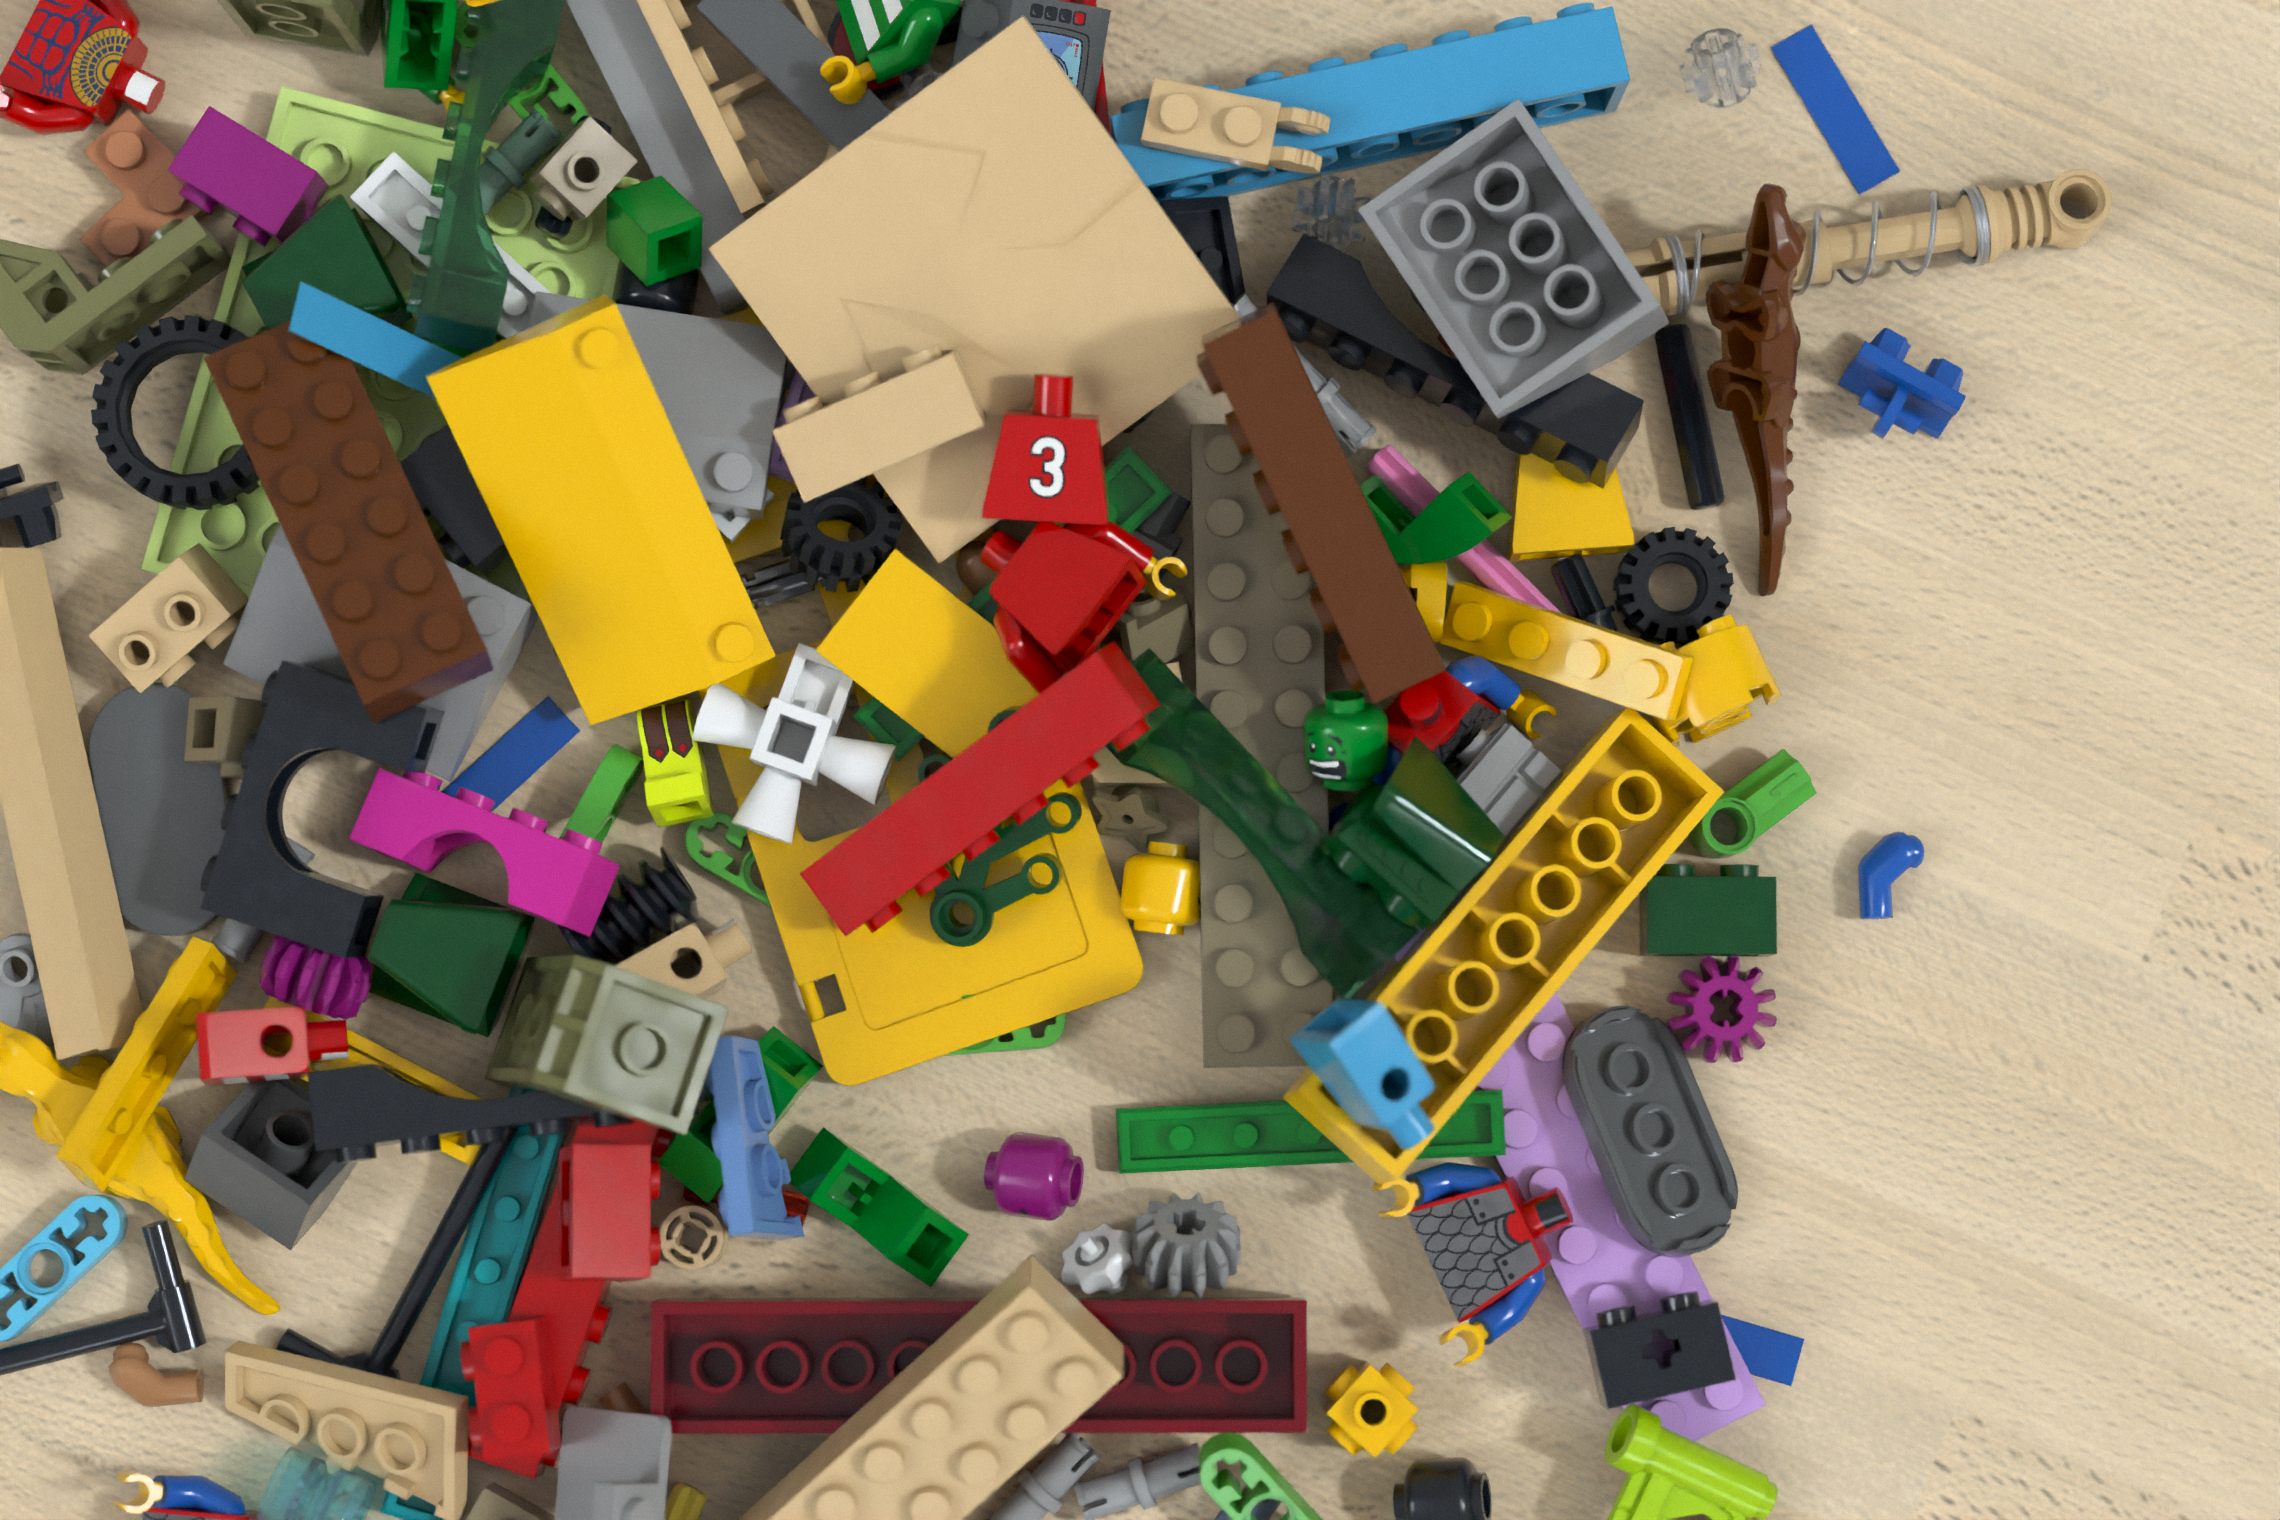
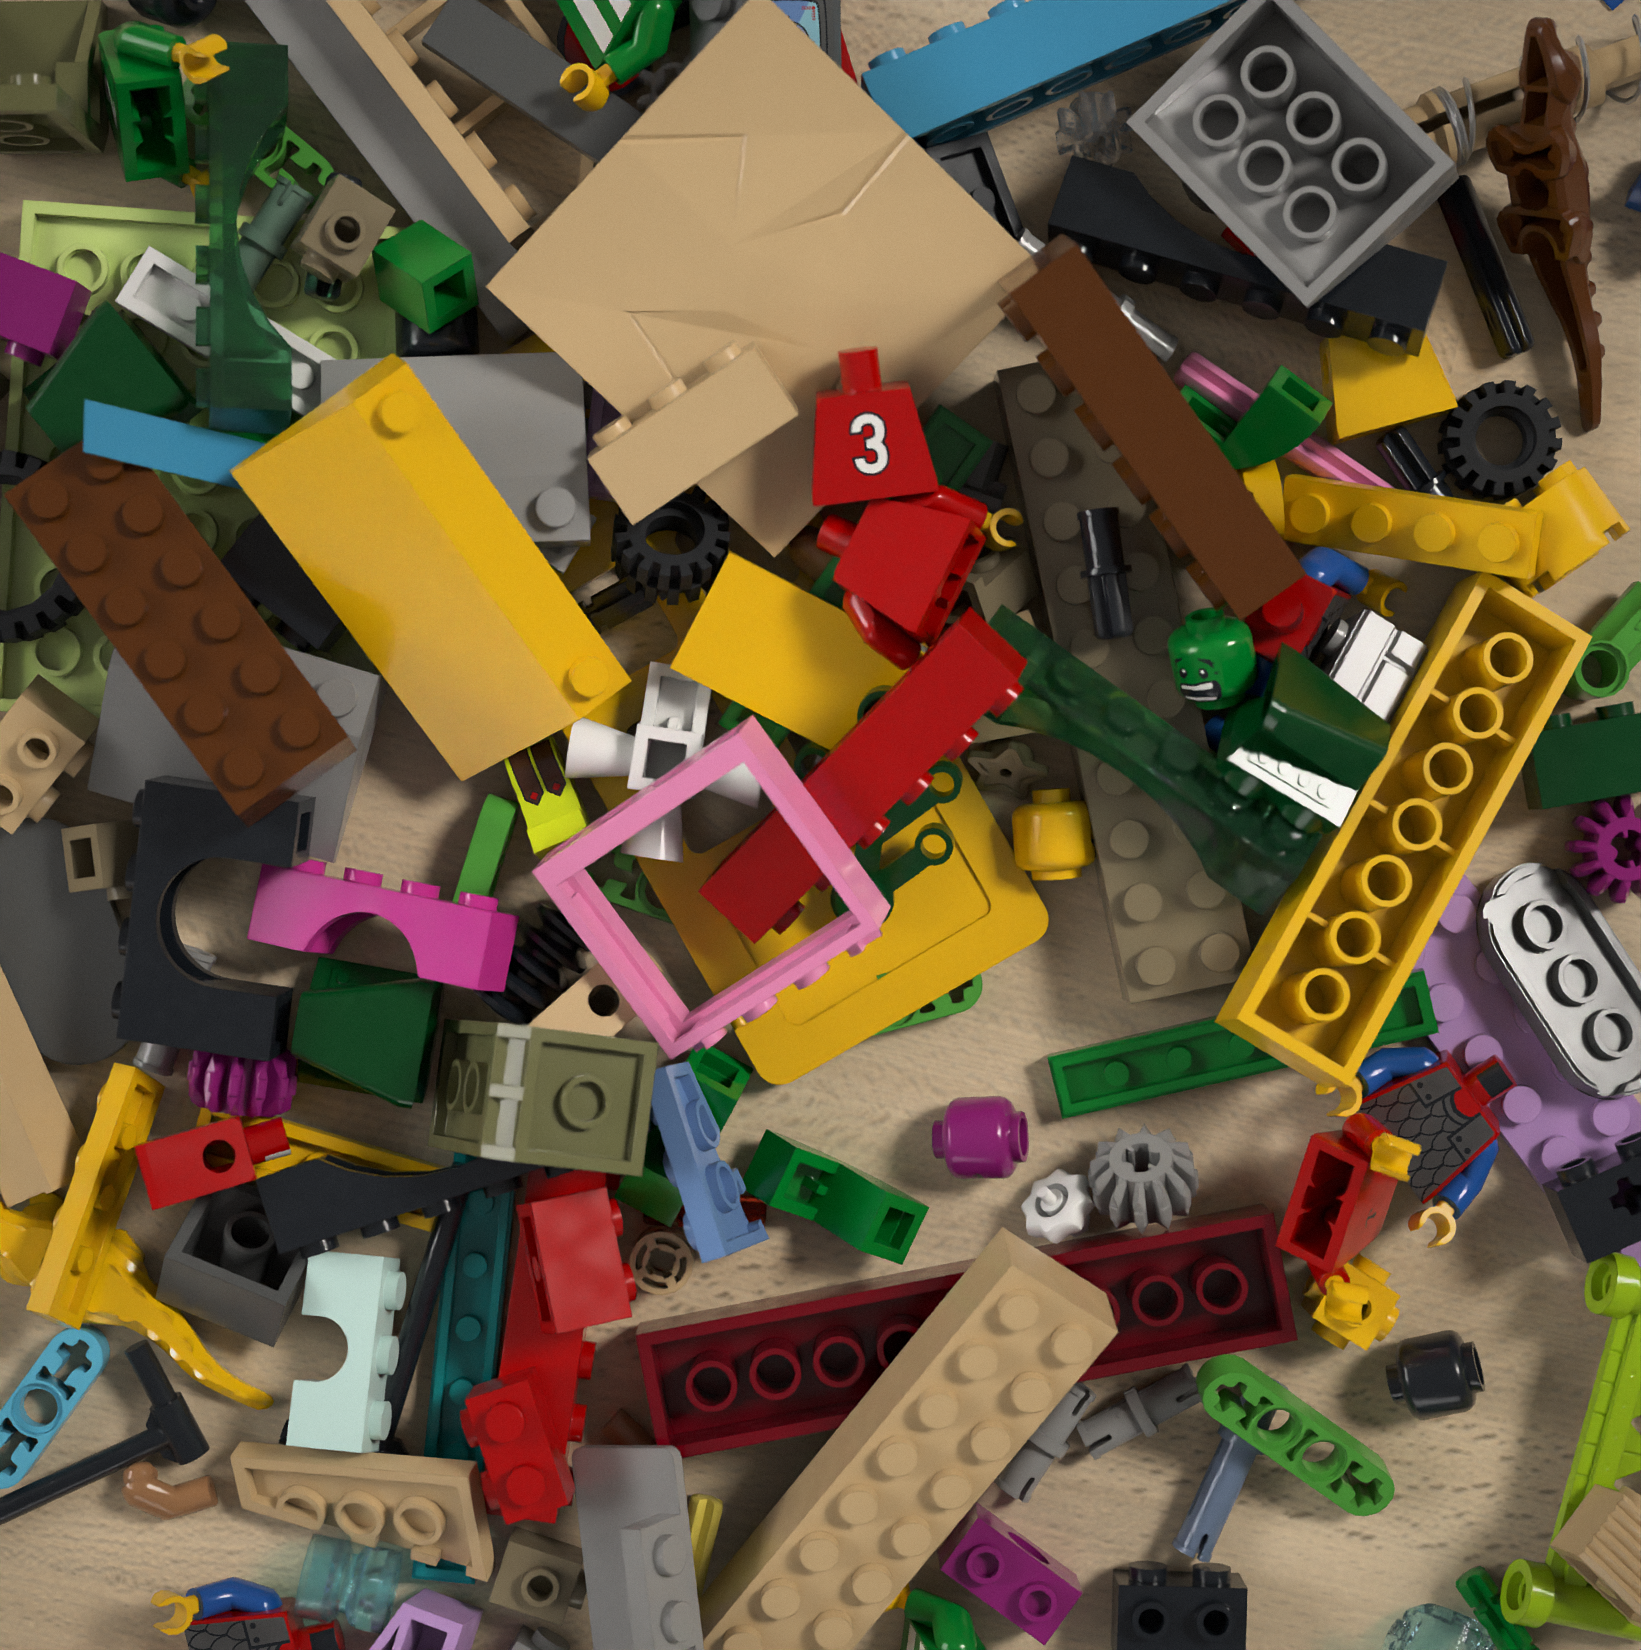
camera: 15 degrees left, 5 degrees up
(354, 1321) = (350, 1407): none -> light aqua arch
(518, 754) = (392, 821): blue sticker -> none
(713, 921) = (625, 960): none -> bright pink window
(1228, 127) = (983, 63): tan hinge -> none
(1257, 637) = (1106, 573): none -> black axle
(1368, 1068) = (1304, 985): dark azure torso -> none
(1376, 1303) = (1343, 1205): none -> red torso

